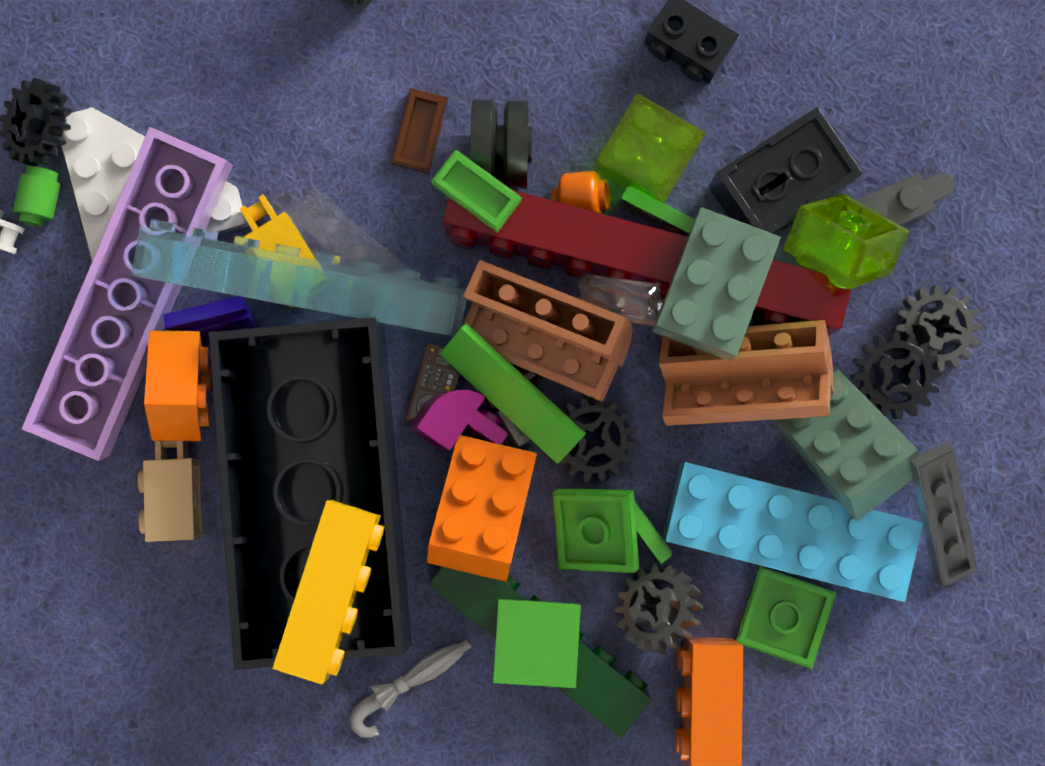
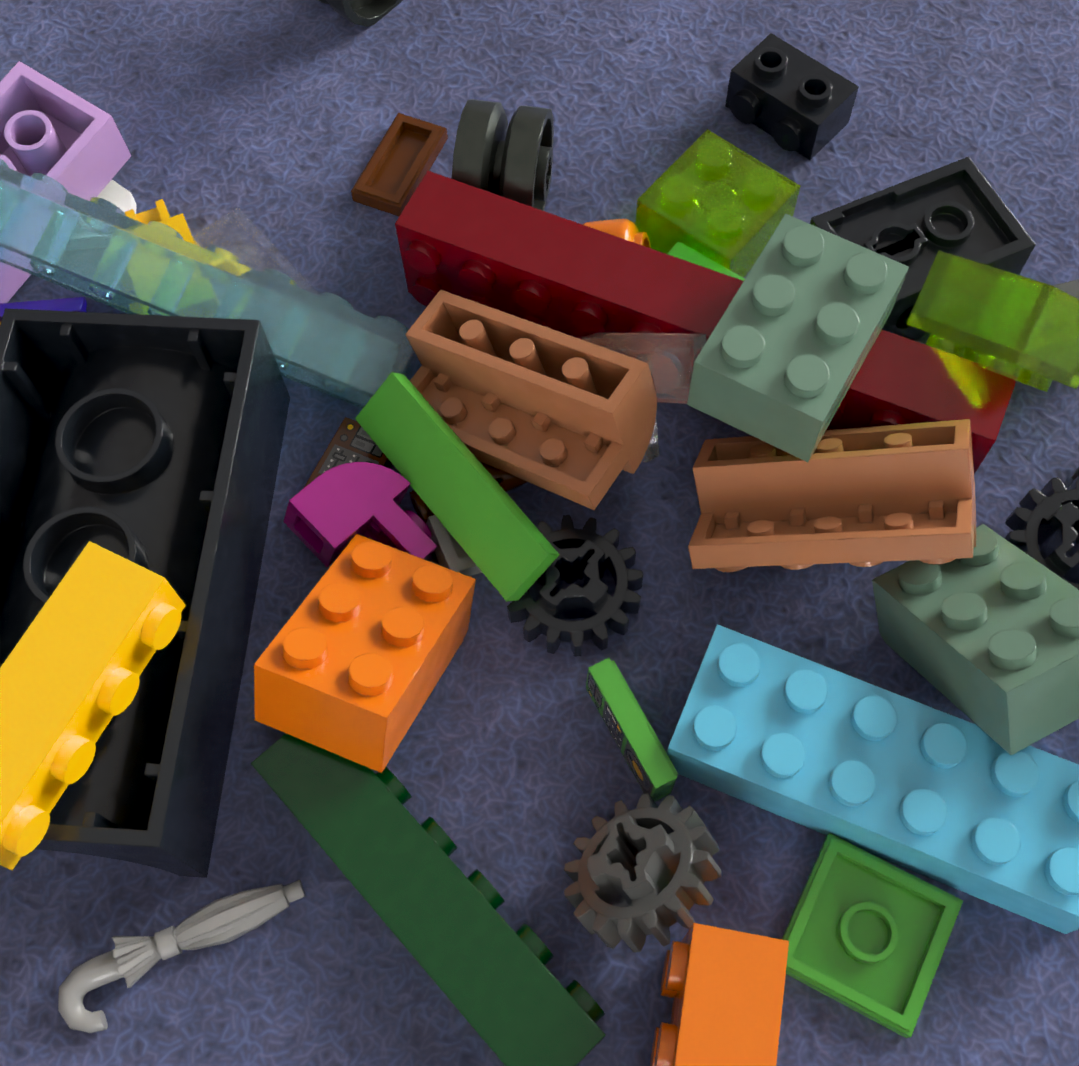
camera: 10 degrees right, 20 degrees down
(476, 191) = (452, 188): bright green tile -> none
(537, 643) = (412, 891): bright green tile -> none
(596, 530) = (553, 720): bright green tile -> none

